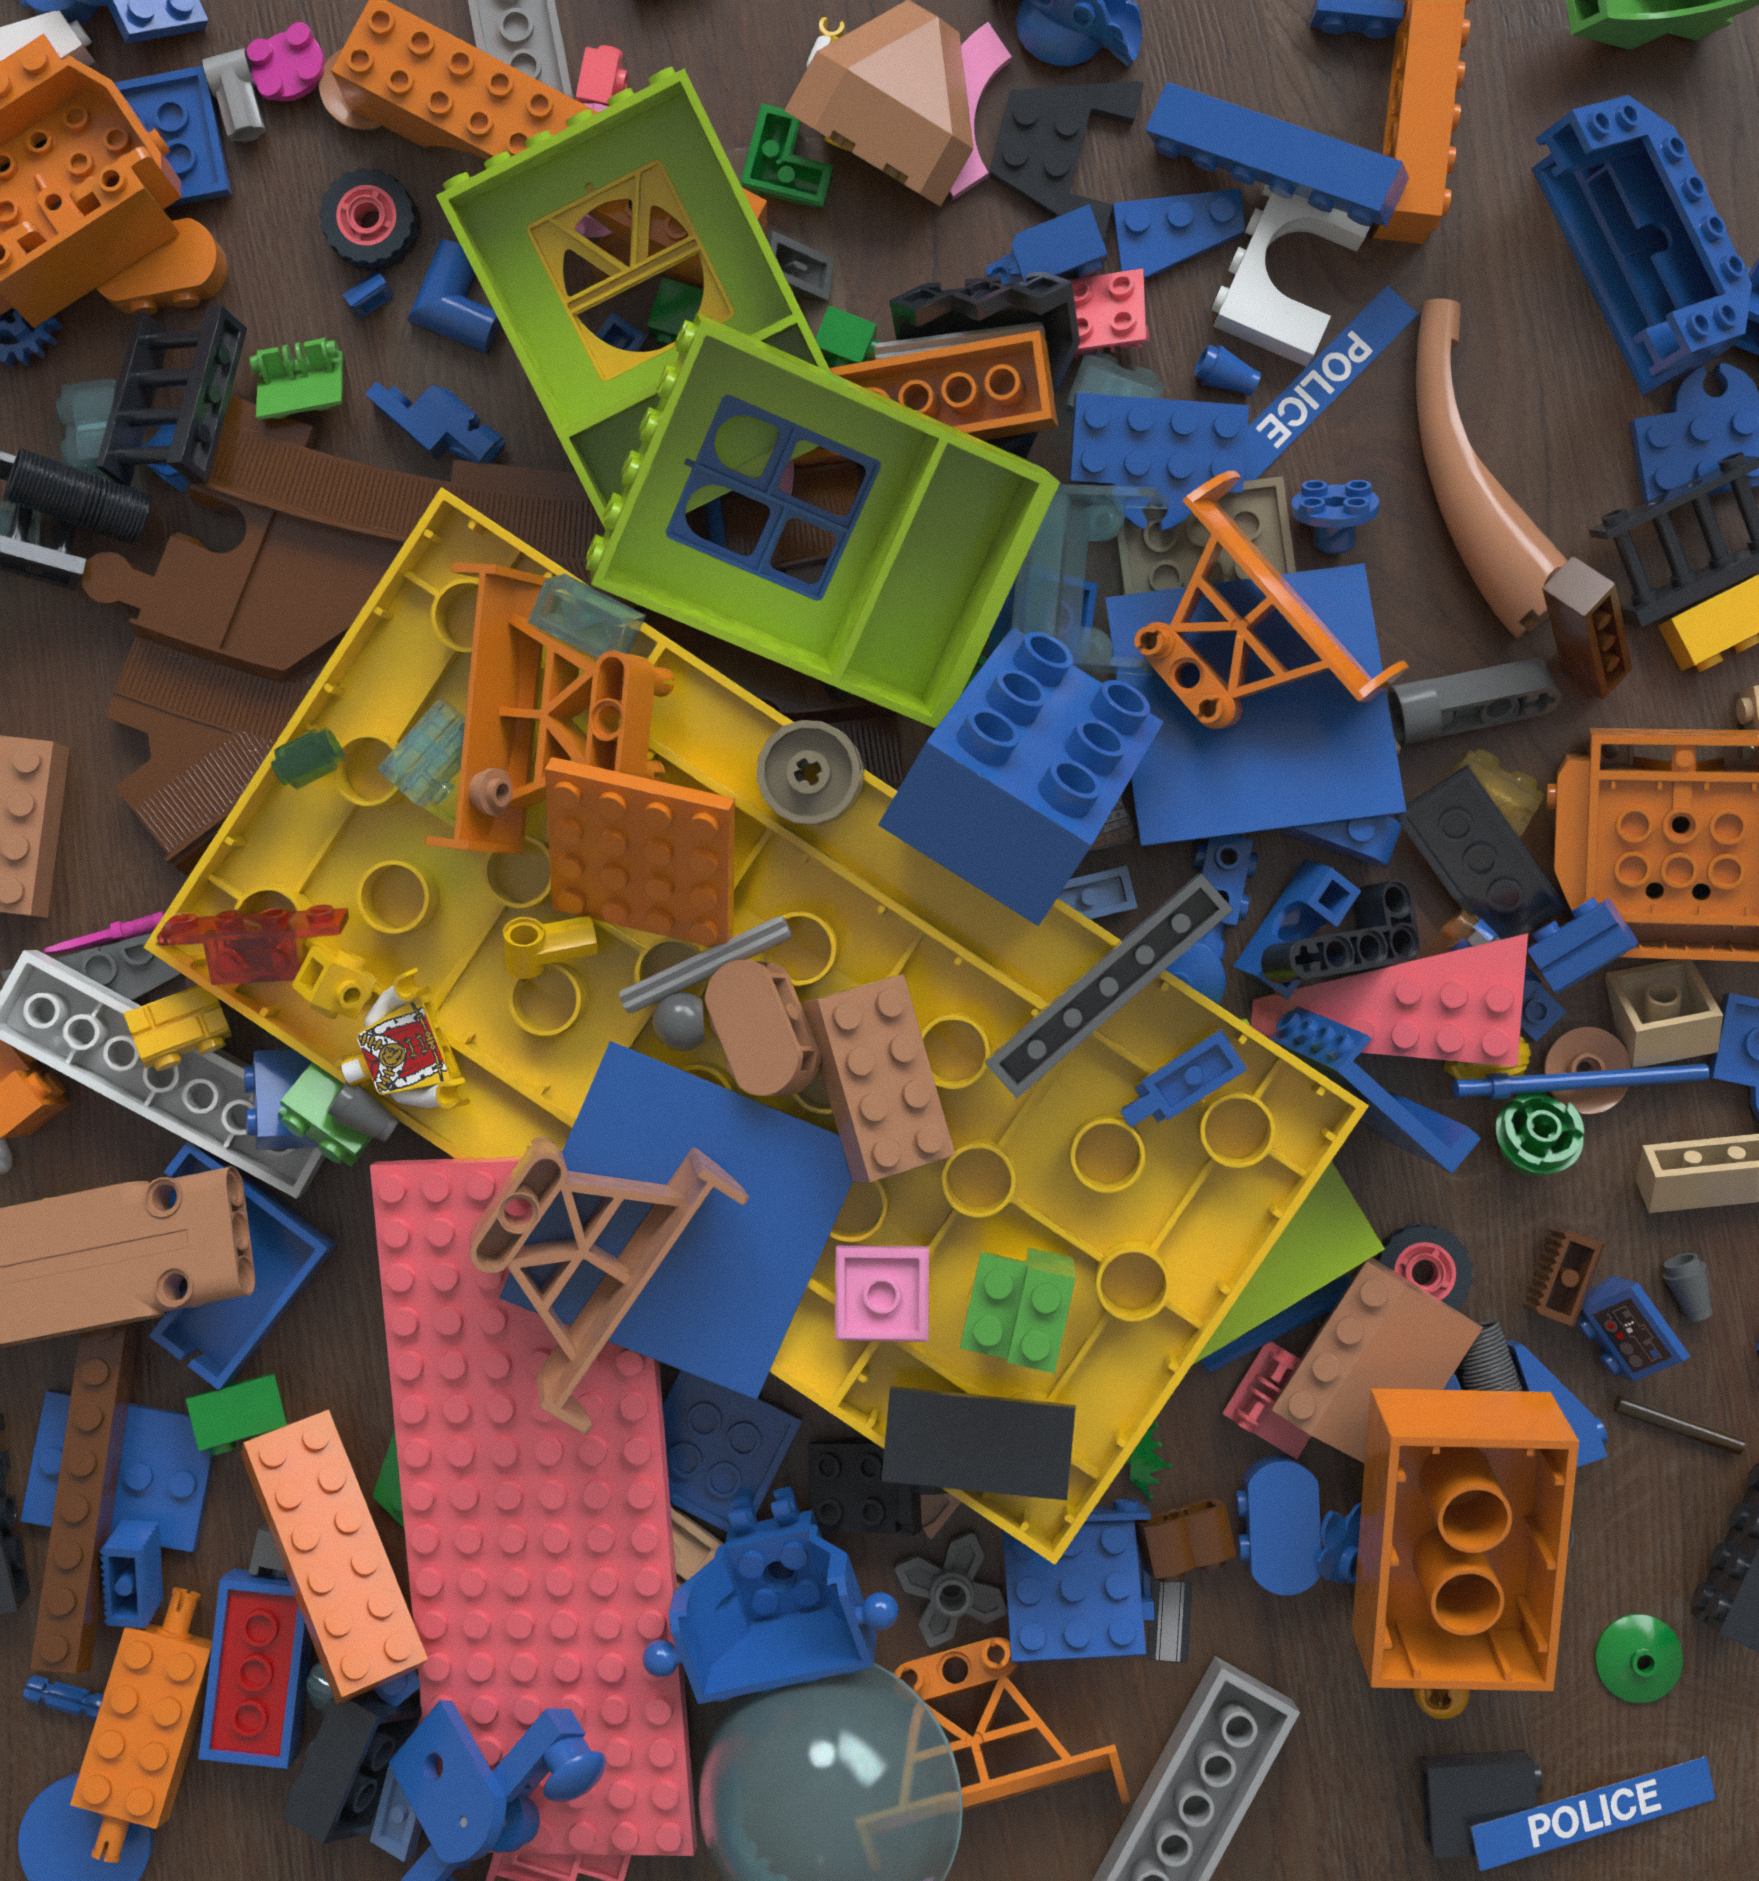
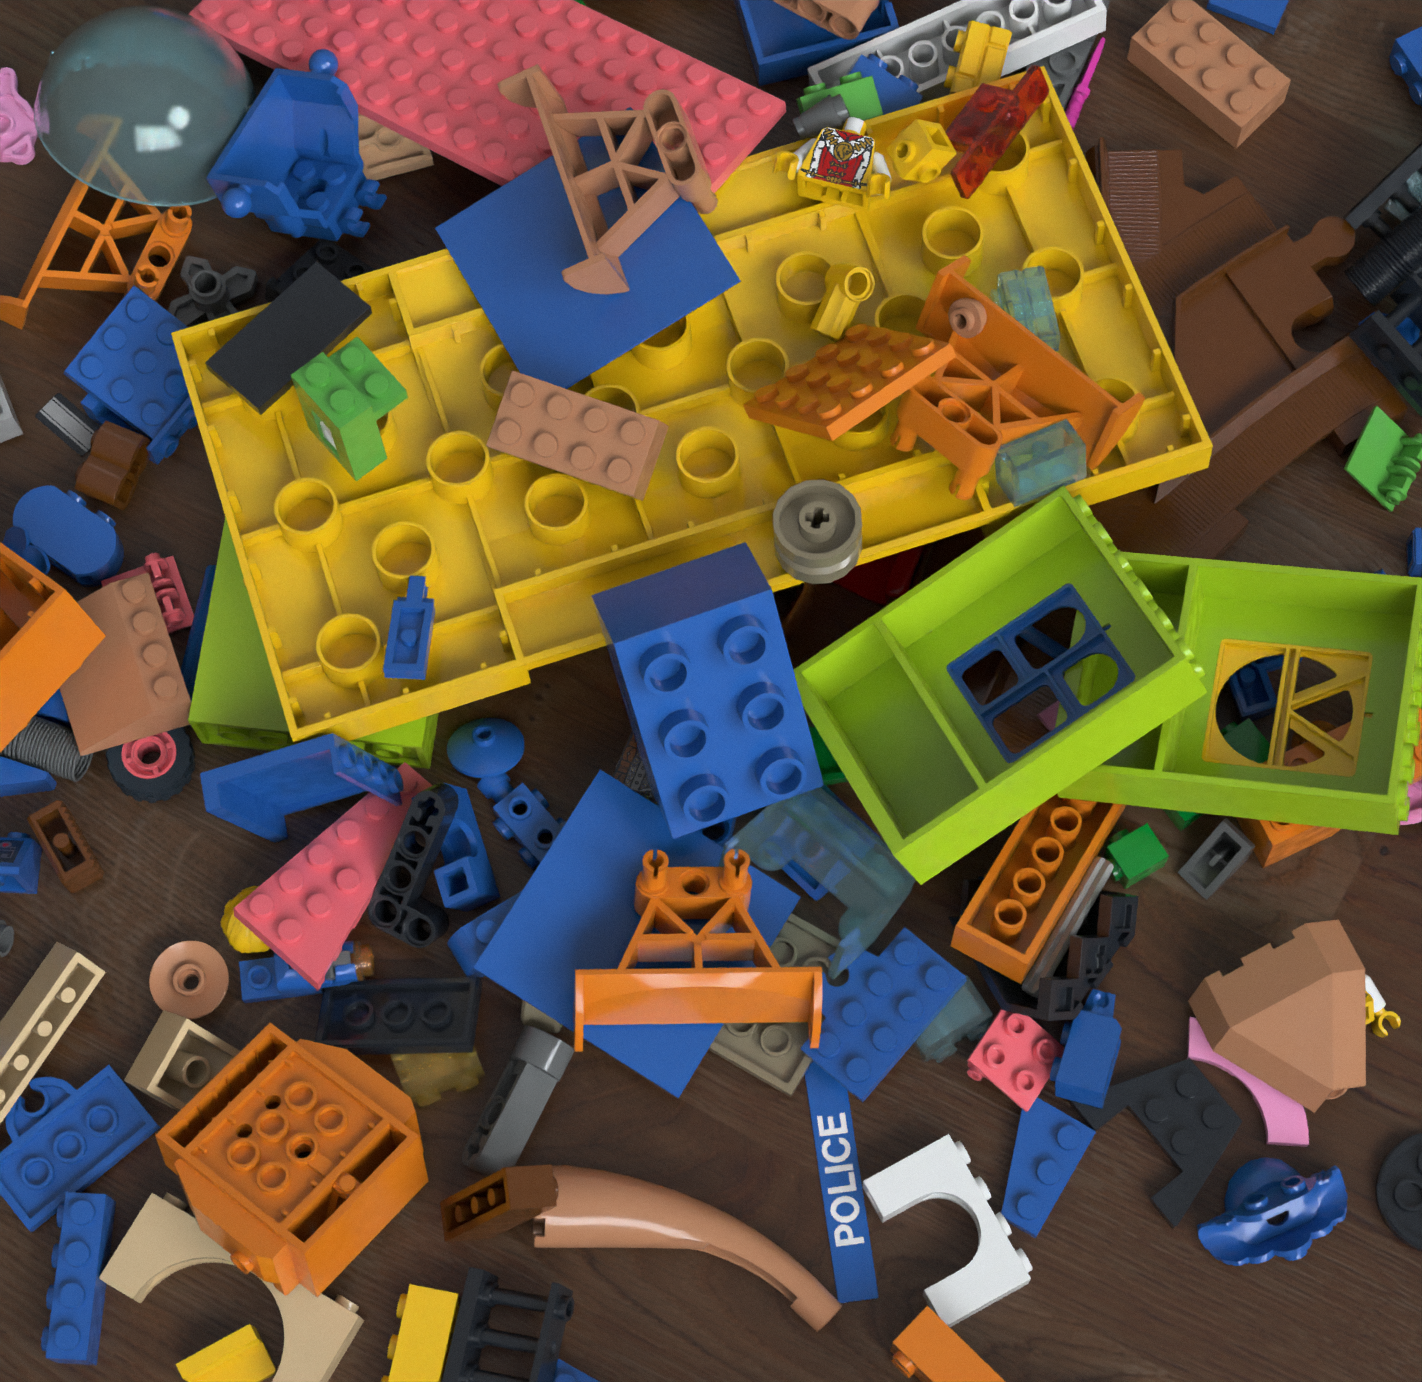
camera: 135 degrees right, 15 degrees down
(307, 758) = (1087, 236): clear green brick -> none
(439, 423) = (1287, 531): blue plate -> none
(679, 1021) = (719, 342): dark grey piece -> none
(704, 964) = (745, 386): light grey axle -> none
(721, 1446) = (418, 204): blue plate -> none
(762, 1028) = (671, 386): nougat brick -> none
(774, 169) = (1301, 898): green brick -> none
(882, 1293) = (435, 347): bright pink tile -> none
(1100, 893) = (595, 729): medium blue plate -> none
(1108, 985) = (514, 618): dark grey brick -> none
(1145, 1462) = (186, 482): green piece -> none
(1225, 371) = (903, 1116): blue cone -> none
(1277, 155) = (1035, 1261): blue brick -> none
(1335, 512) = (736, 1110): blue plate -> none
(1501, 1086) = (229, 897): blue bar -> none
(1539, 1134) = (174, 903): green cone -> none
(1581, 945) = (278, 1018): blue brick -> none

